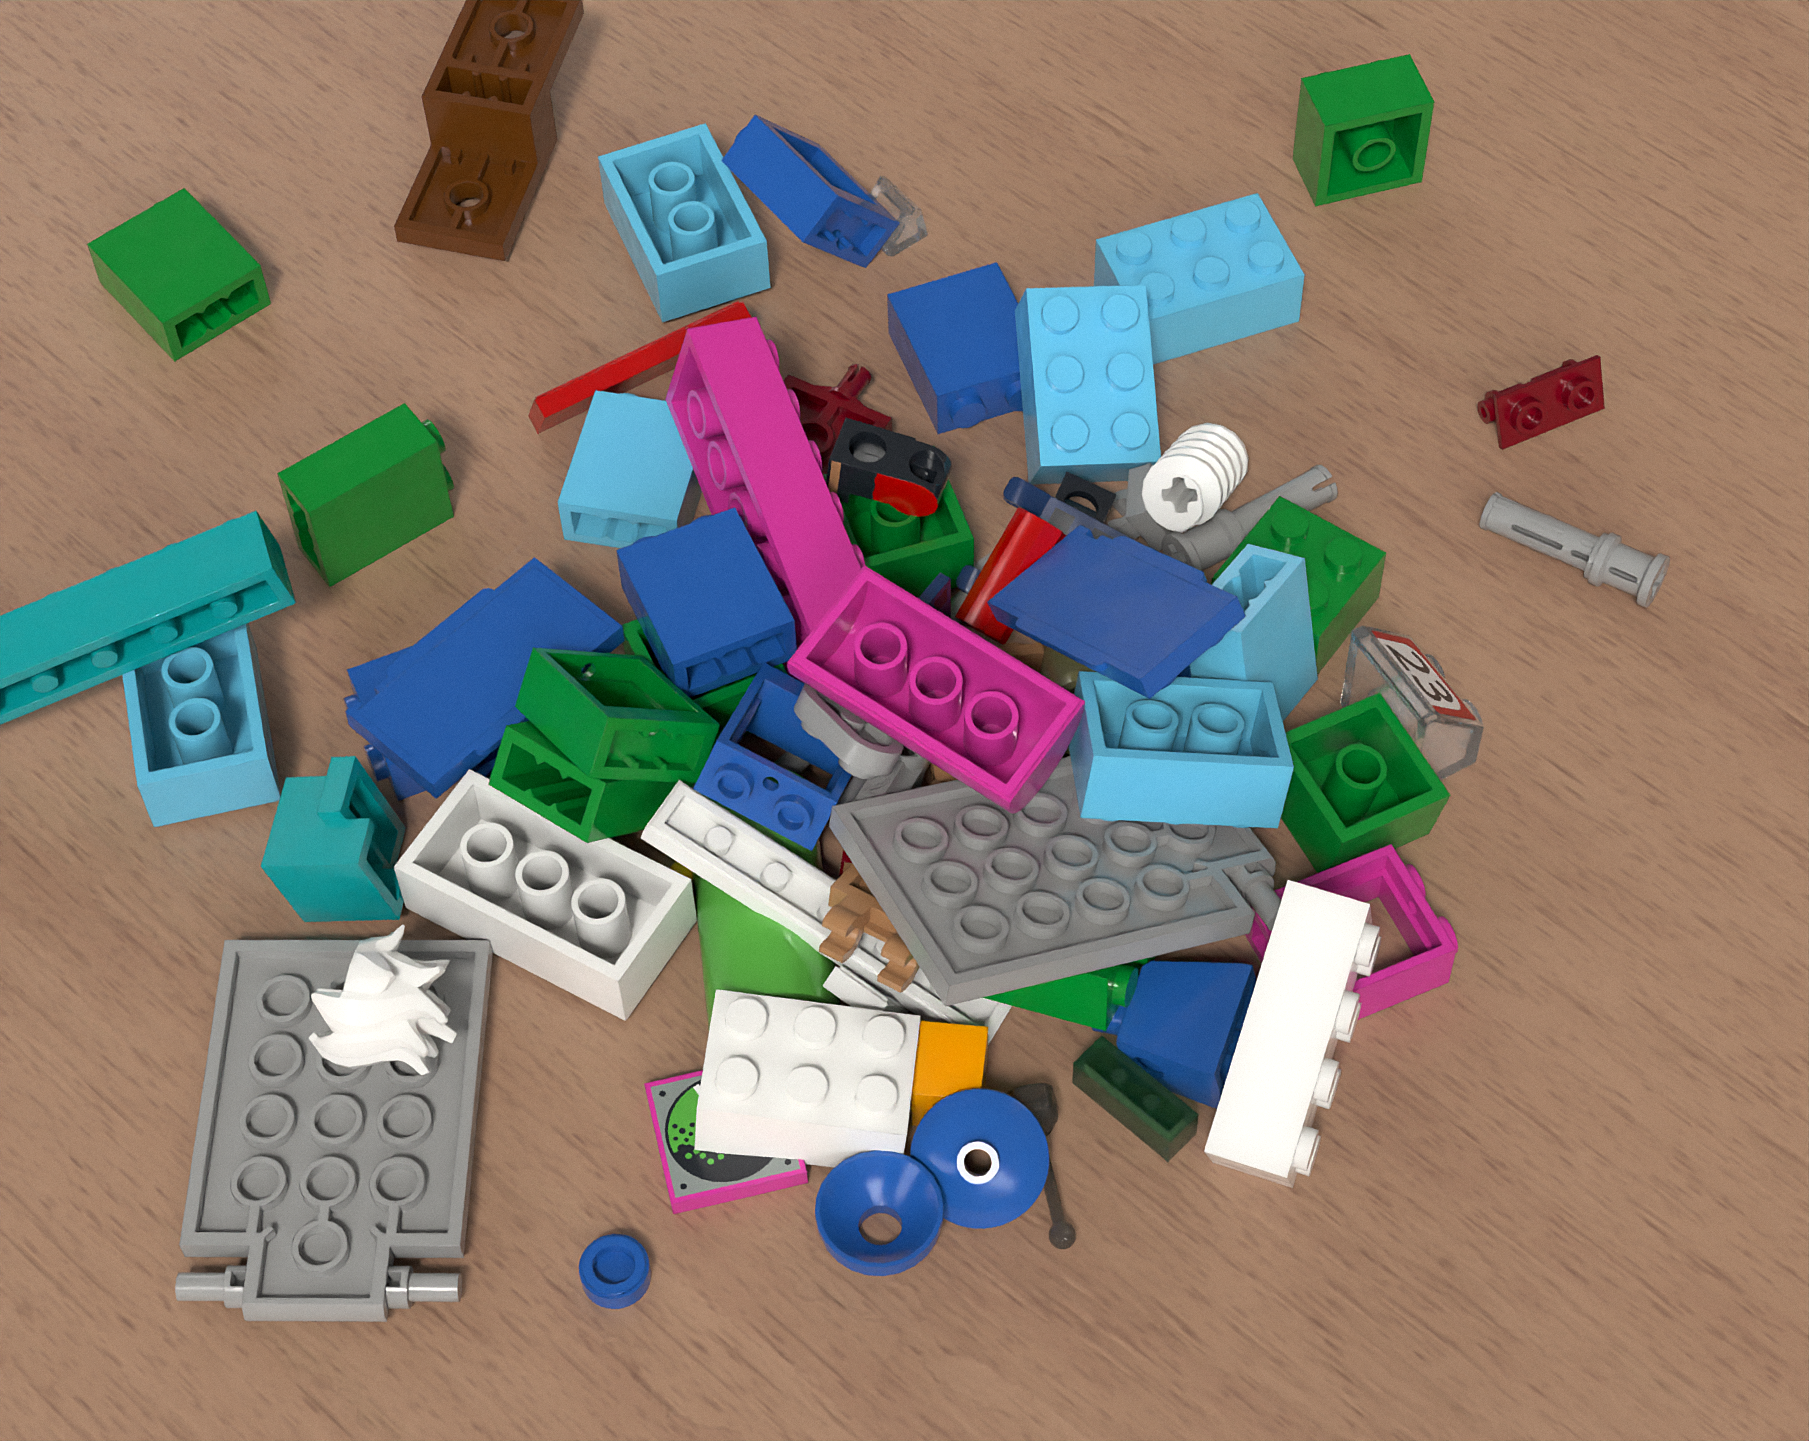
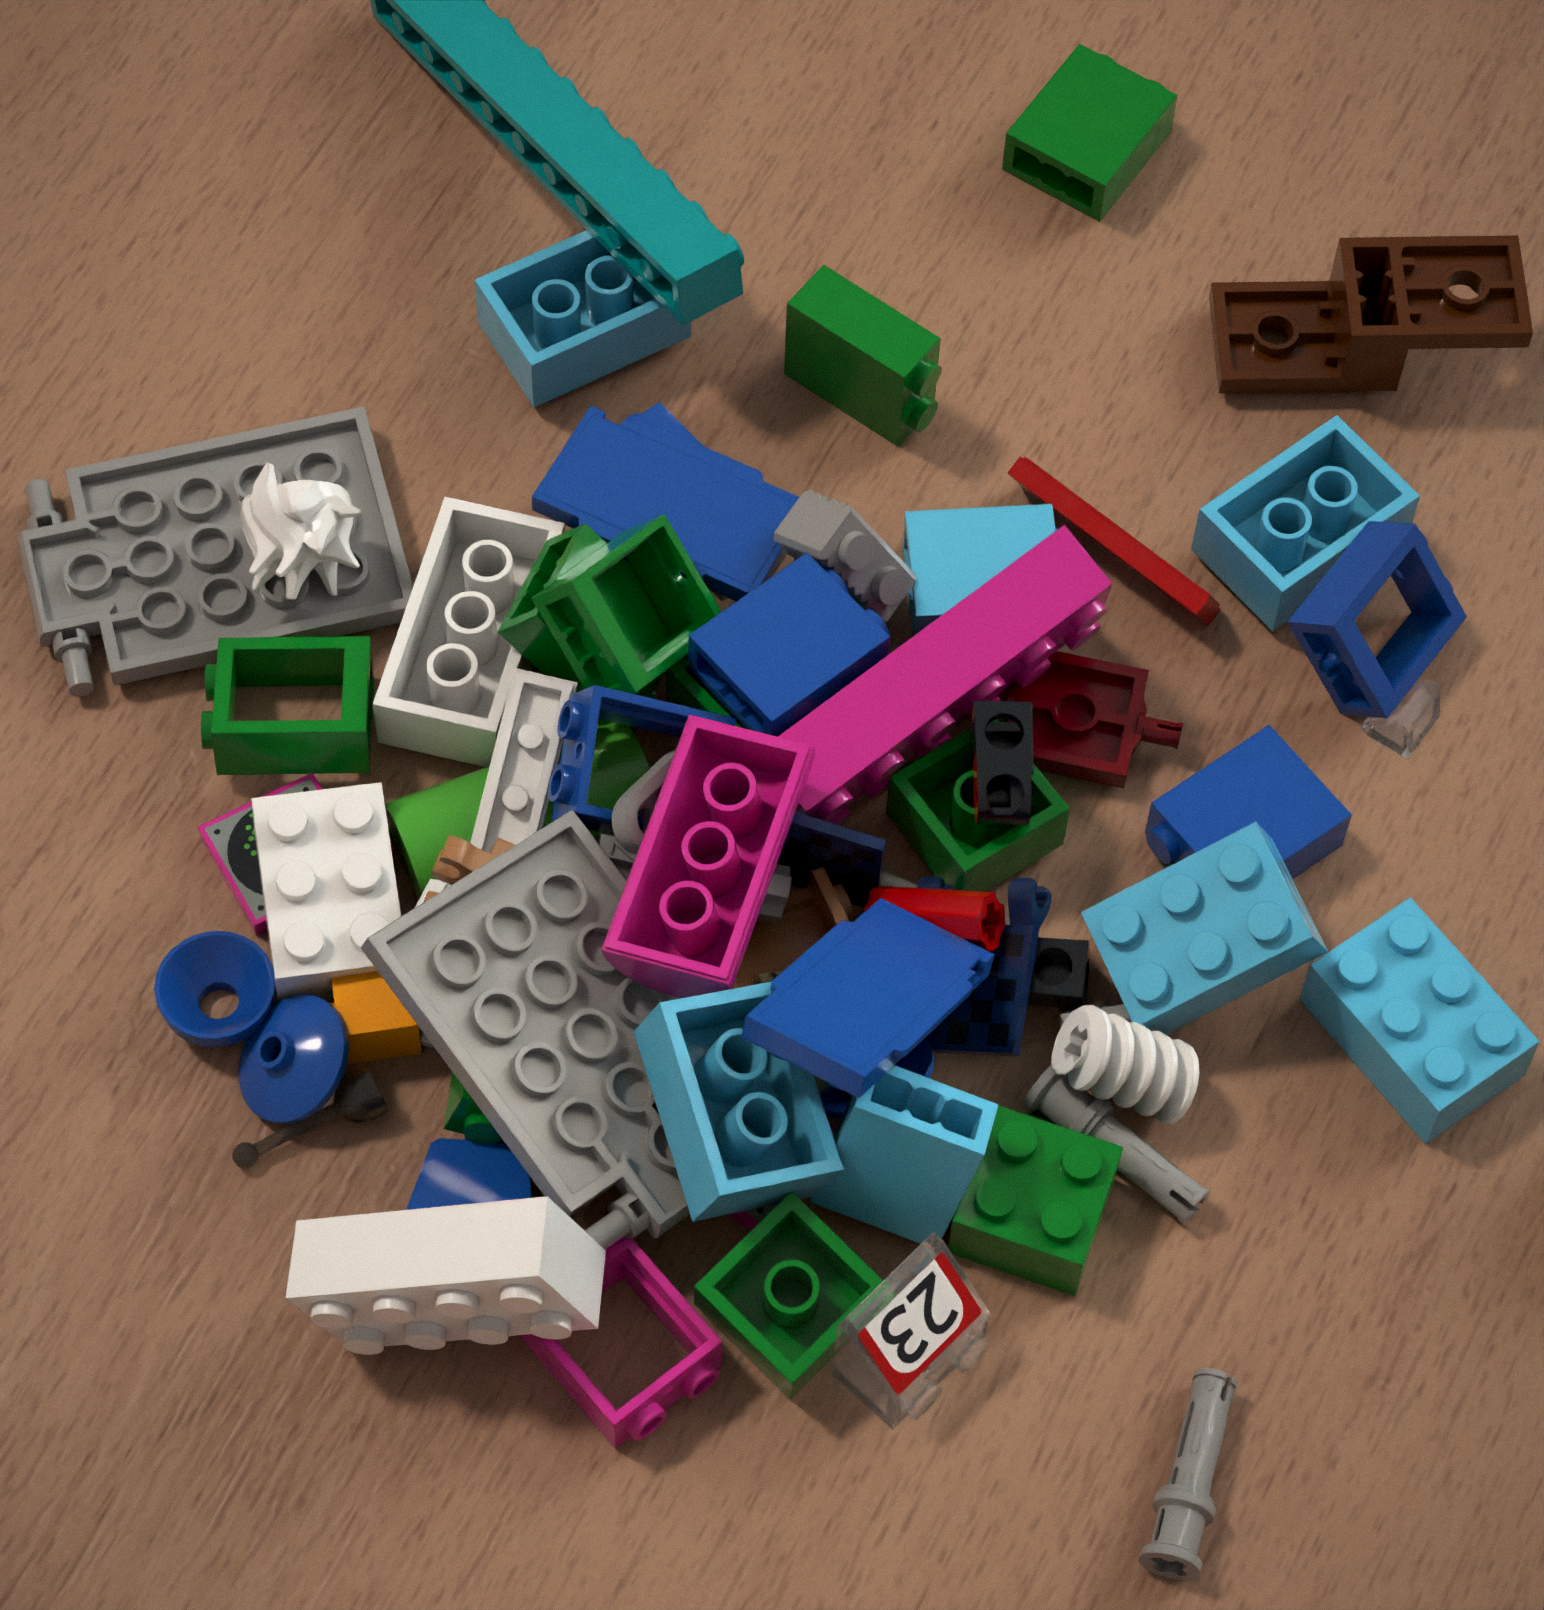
camera: 70 degrees right, 5 degrees up
(336, 846) = (473, 449): teal plate -> none
(577, 1017) = (290, 744): none -> green window
(587, 543) = (850, 547): none -> light grey brick
(615, 1271) = (127, 804): blue tile -> none
(1135, 1098) = (397, 1169): clear green piece -> none
(1545, 401) = (1371, 1395): dark red hinge -> none

